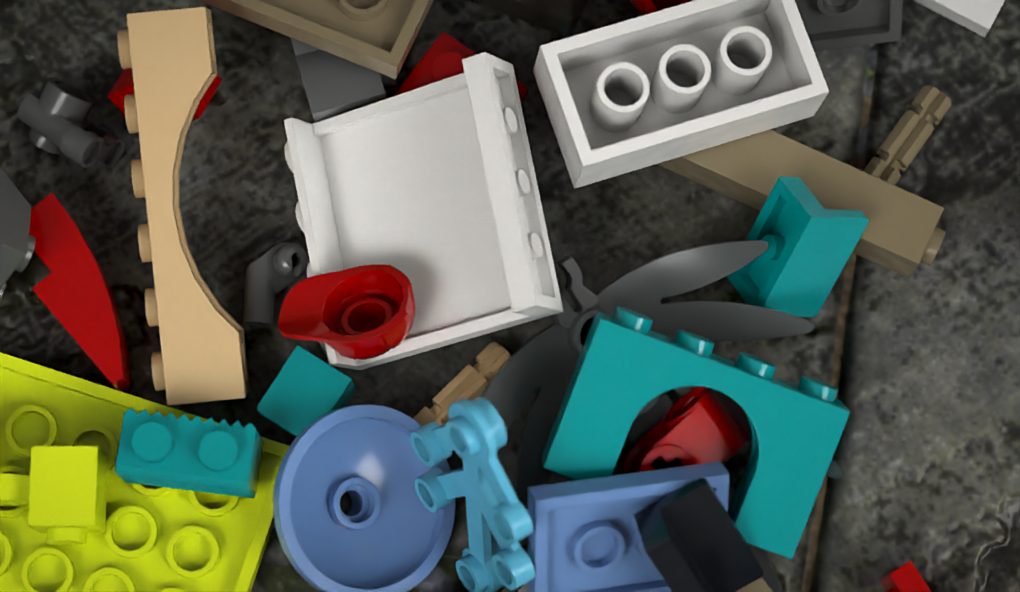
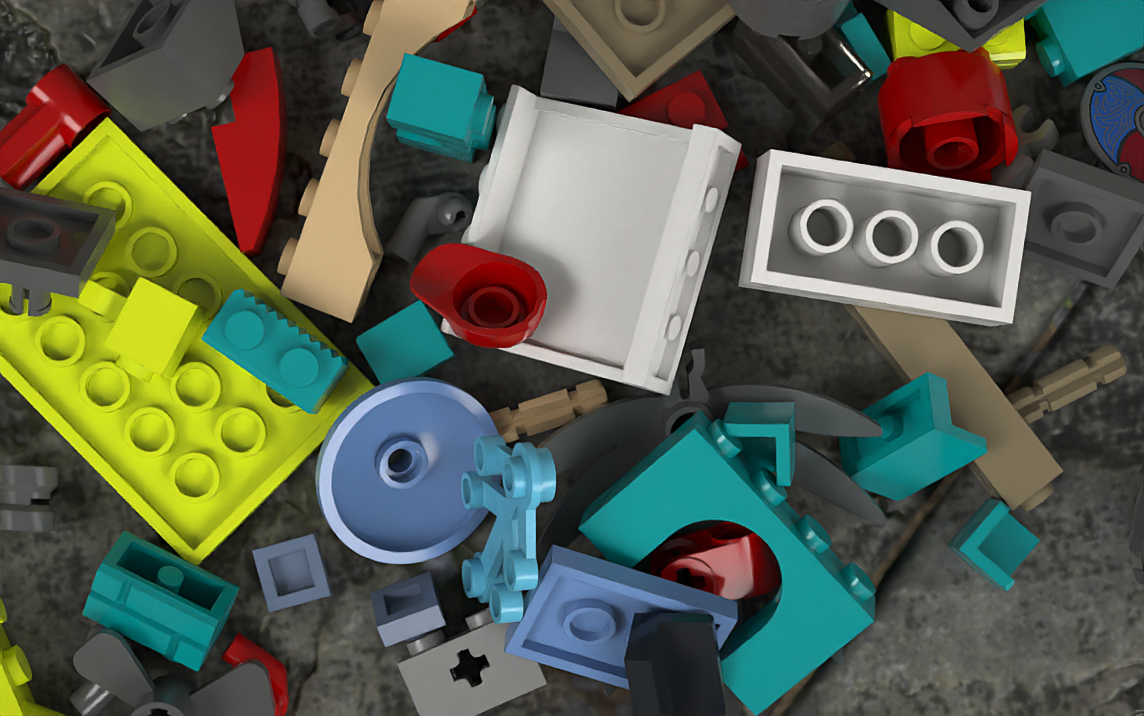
camera: 25 degrees right, 10 degrees up
(233, 164) = (441, 109): none -> teal arch
(668, 304) = (766, 435): none -> teal panel
(918, 308) = (993, 543): none -> teal panel

